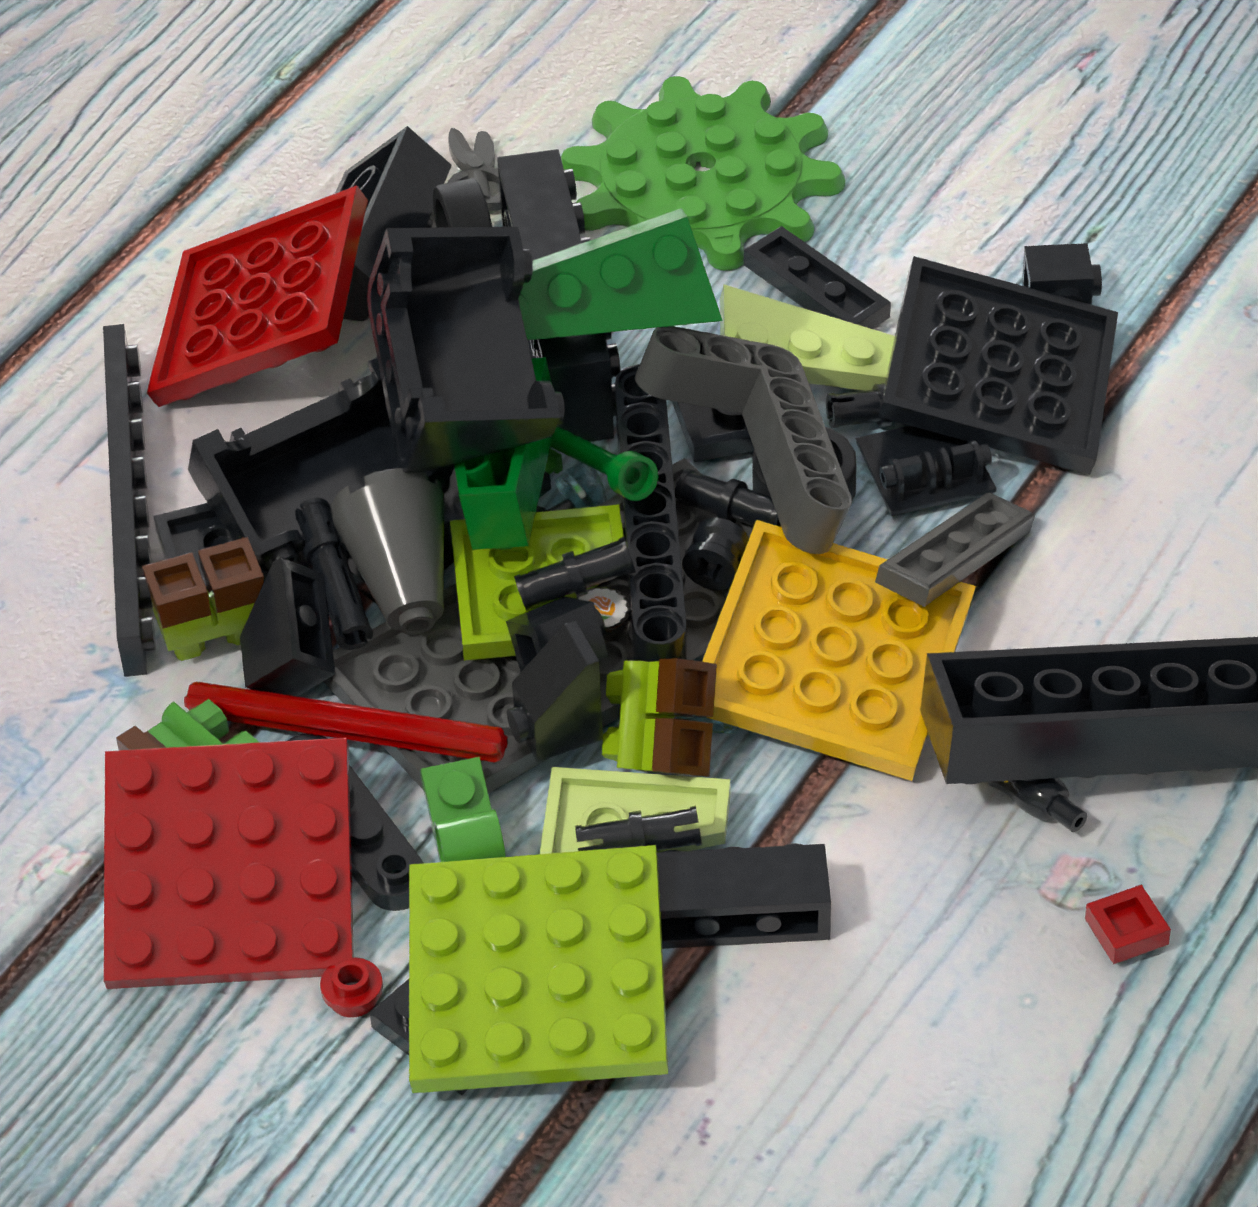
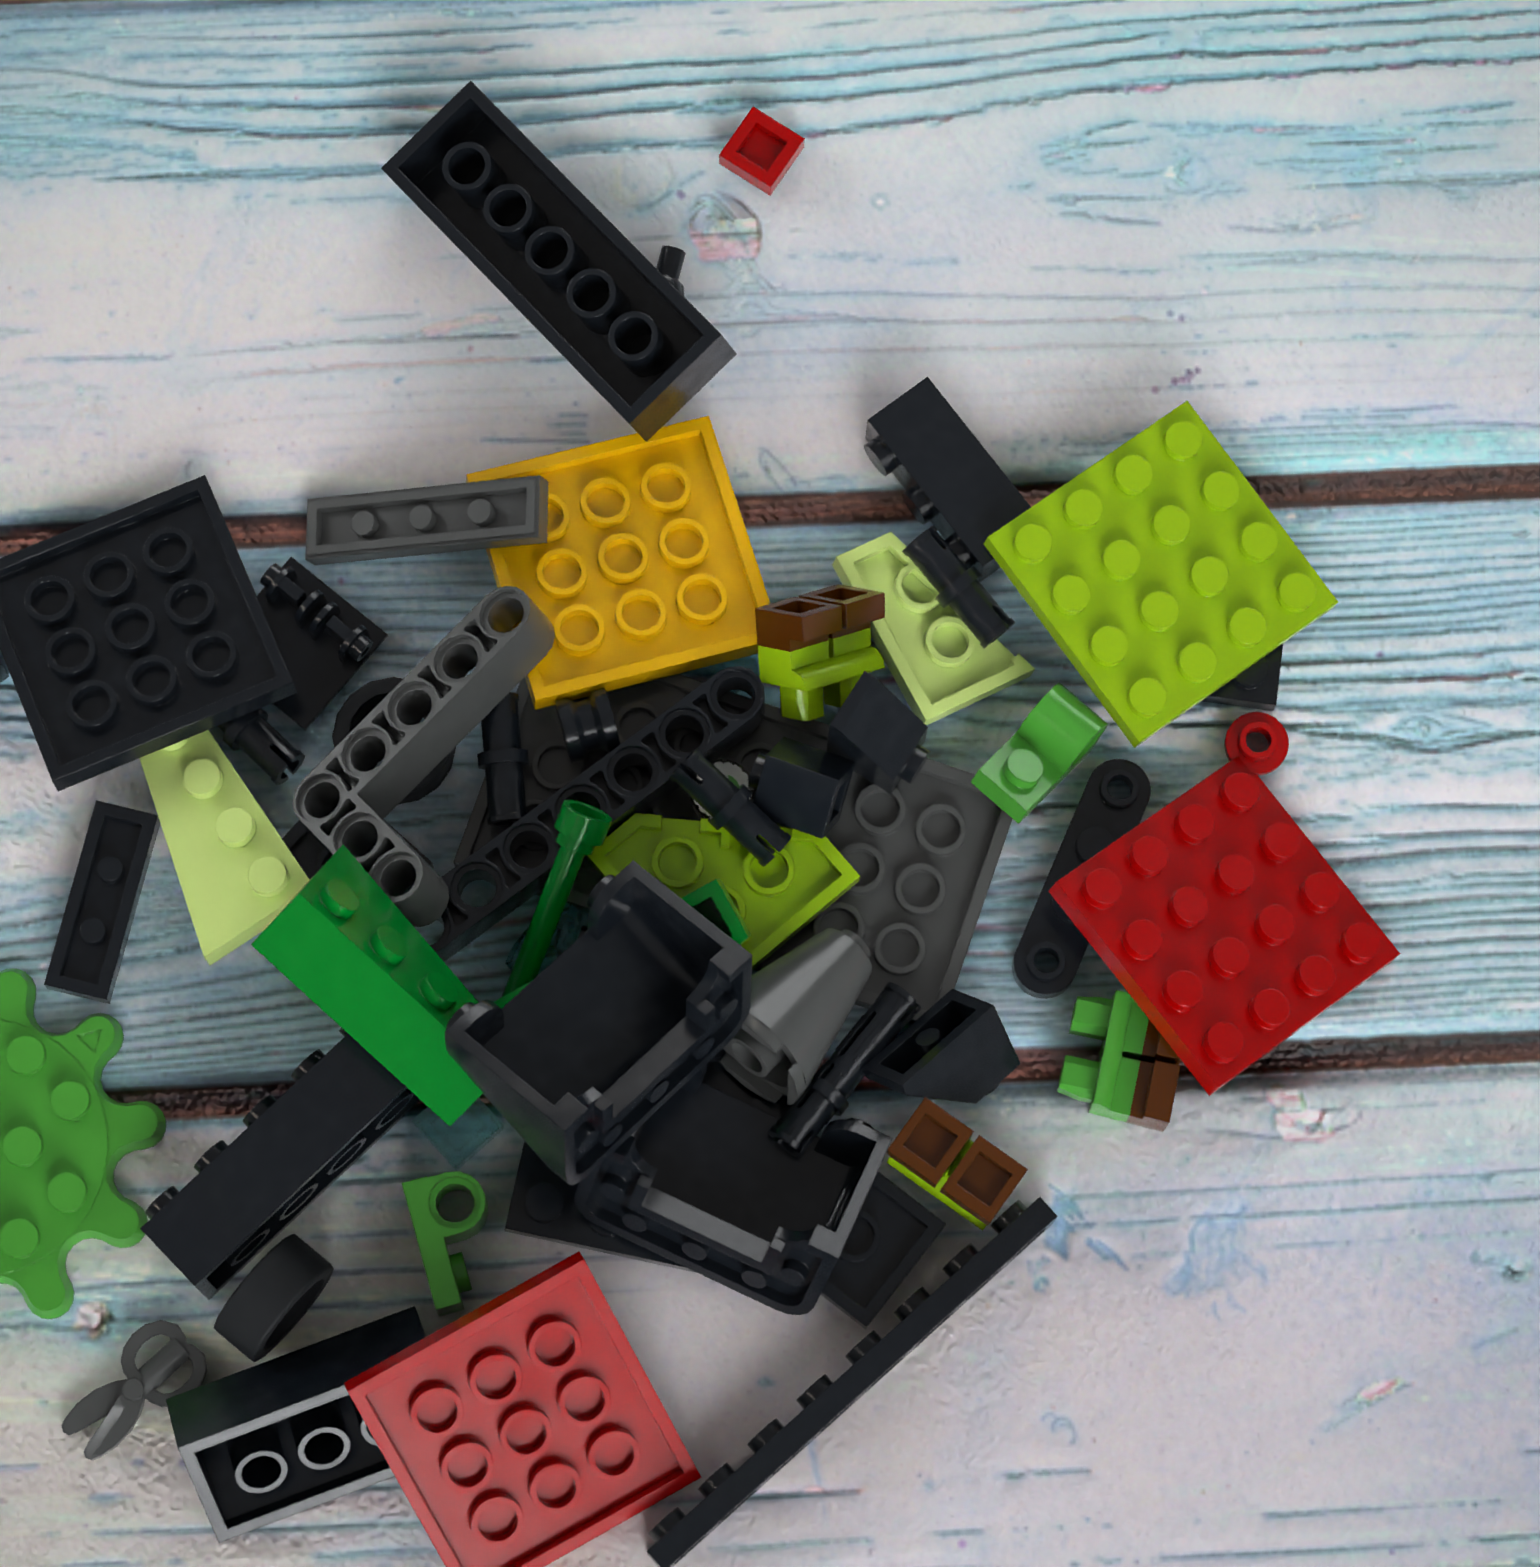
camera: 130 degrees left, 30 degrees up
(352, 722) = (1000, 940): red axle -> none

